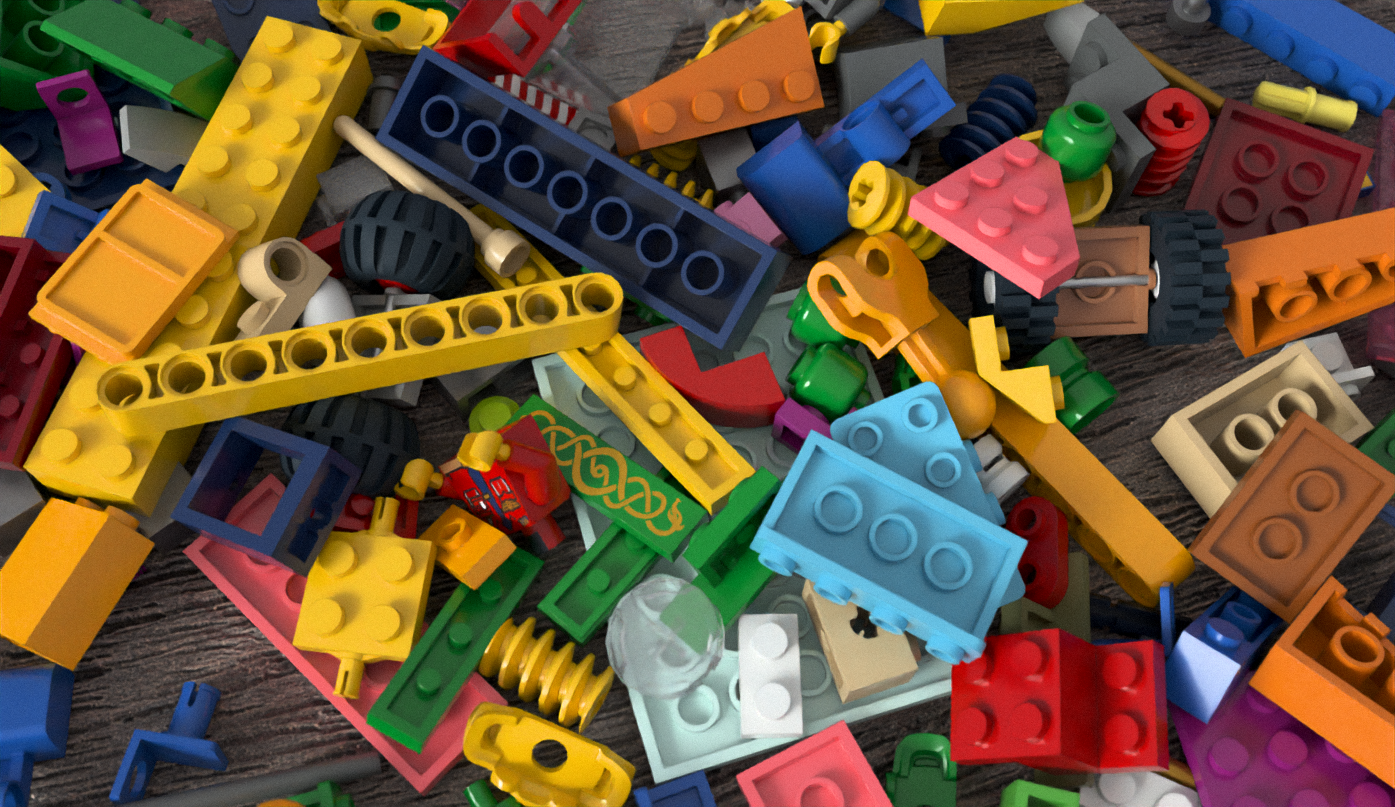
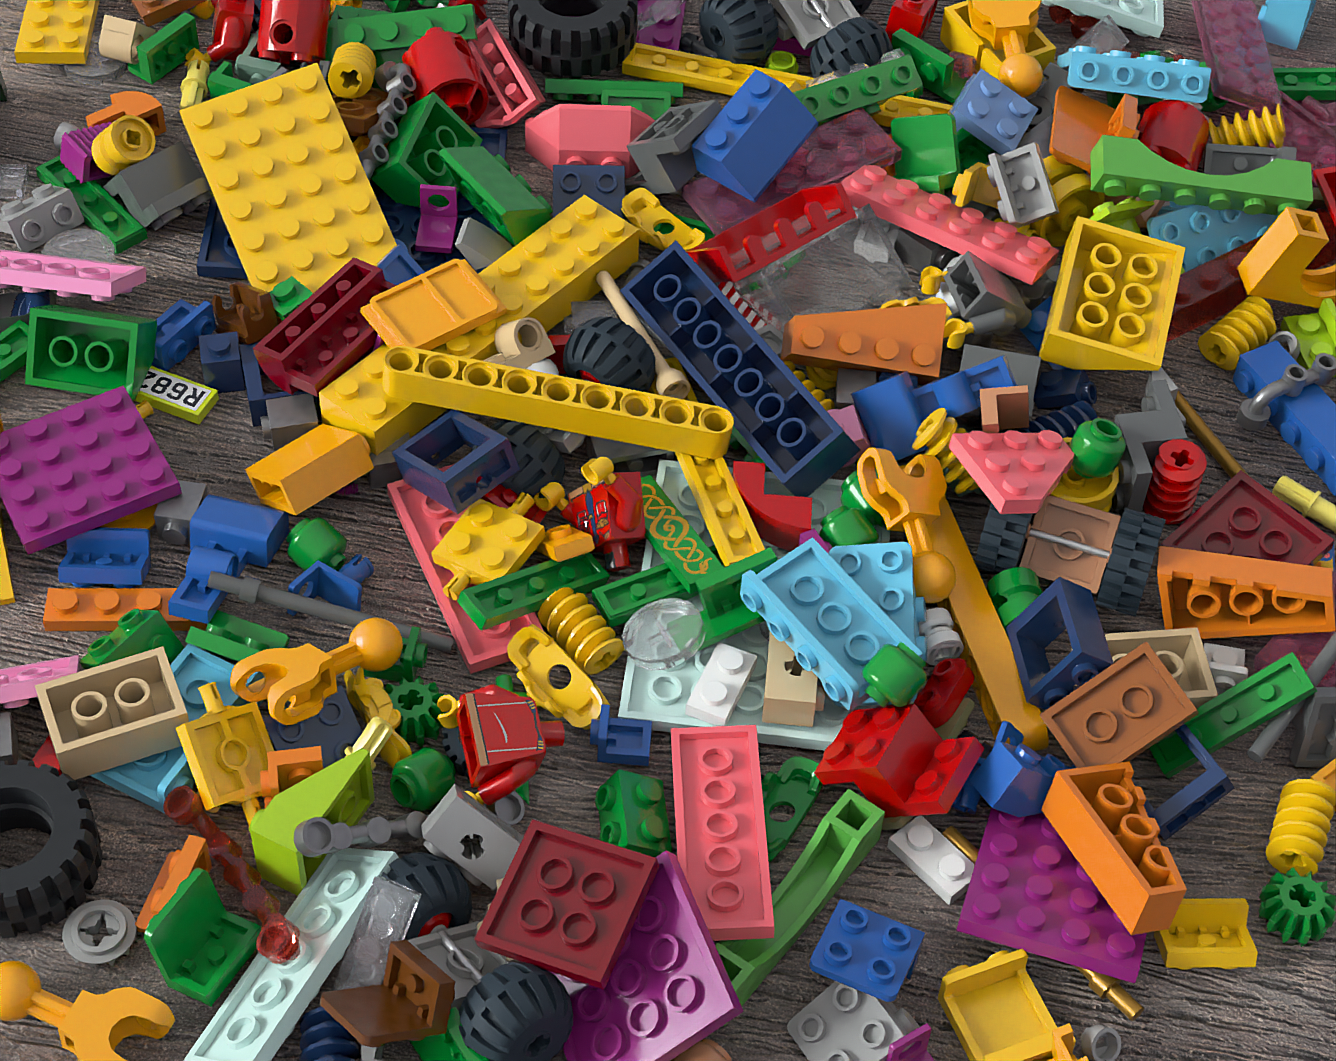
camera: 25 degrees right, 15 degrees down
(124, 695) = (316, 541): none -> green head
(933, 146) = (1004, 408): none -> nougat panel
(971, 60) = (1064, 388): none -> dark blue bracket
(1021, 603) = (894, 675): none -> green head
(1027, 388) = (979, 577): yellow slope -> none
(1199, 410) = (1056, 609): none -> dark blue window

